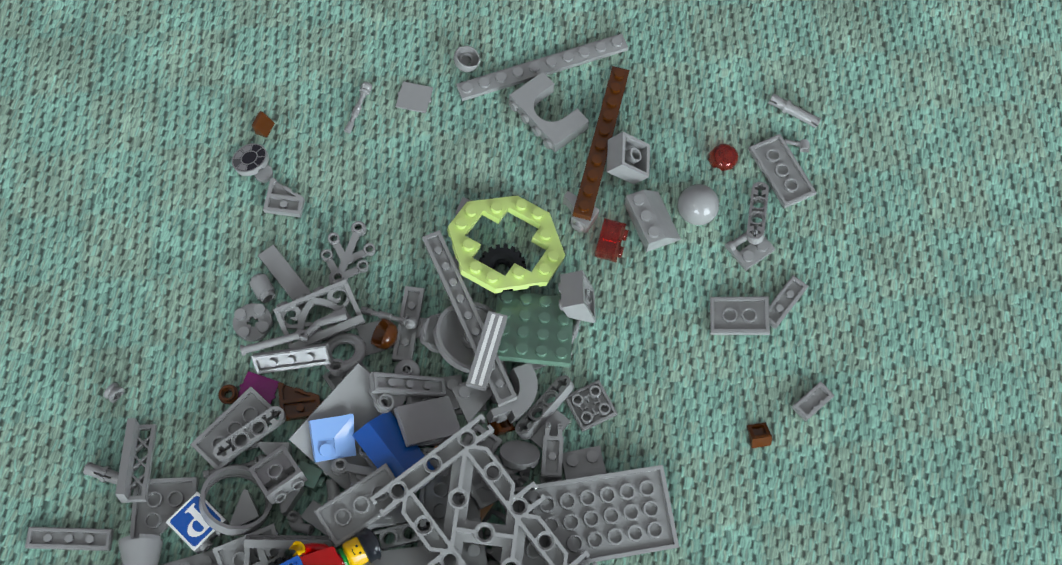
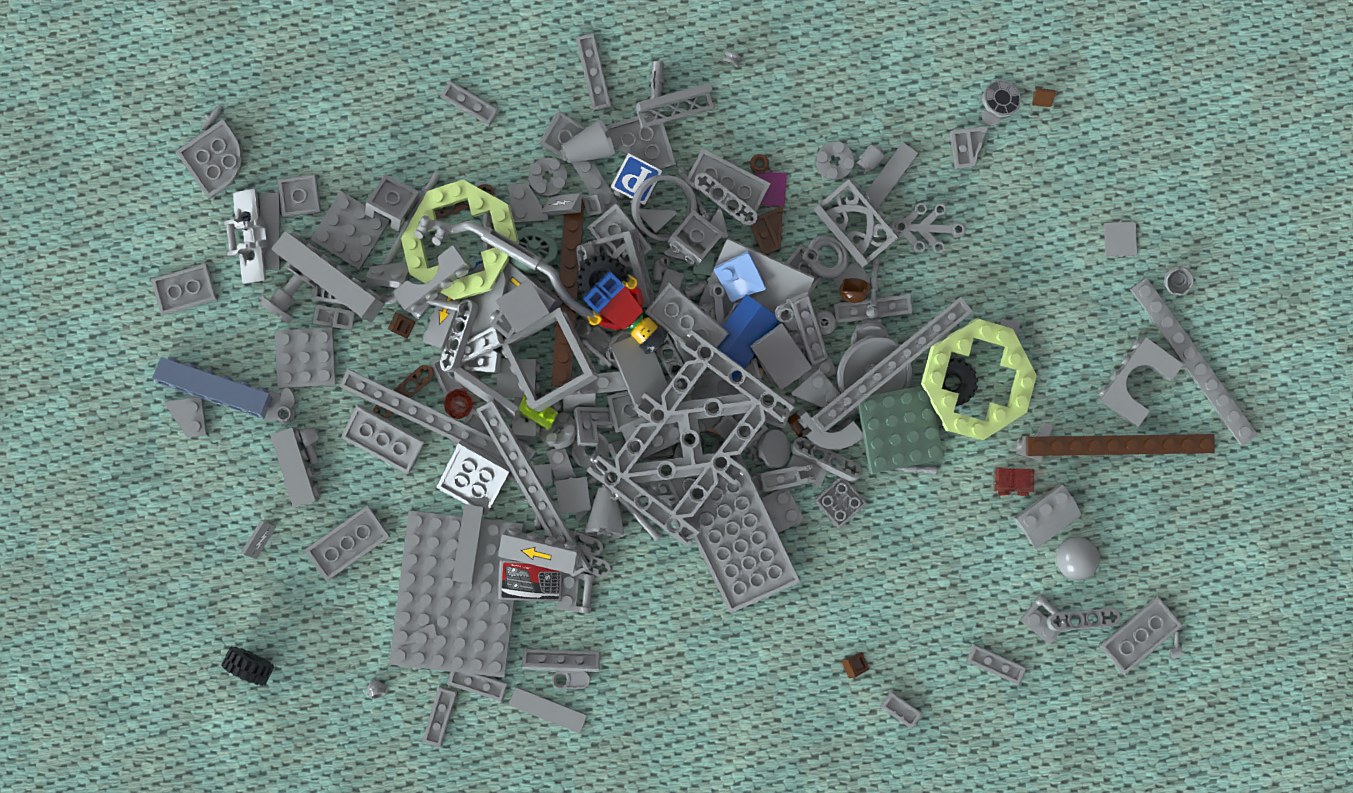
camera: 75 degrees right, 20 degrees up
(292, 358) = (807, 212): light grey tile -> none
(337, 316) = (859, 241): light grey piece -> none
(364, 90) = (1115, 186): light grey piece -> none
(486, 351) = (860, 392): light grey tile -> none
(577, 296) = (942, 463): light grey slope -> none
(628, 158) = (1106, 476): light grey brick -> none
(723, 157) = (1139, 572): clear red hair -> none
(739, 315) = (968, 623): light grey tile -> none
(795, 111) = (1214, 635): light grey pin -> none

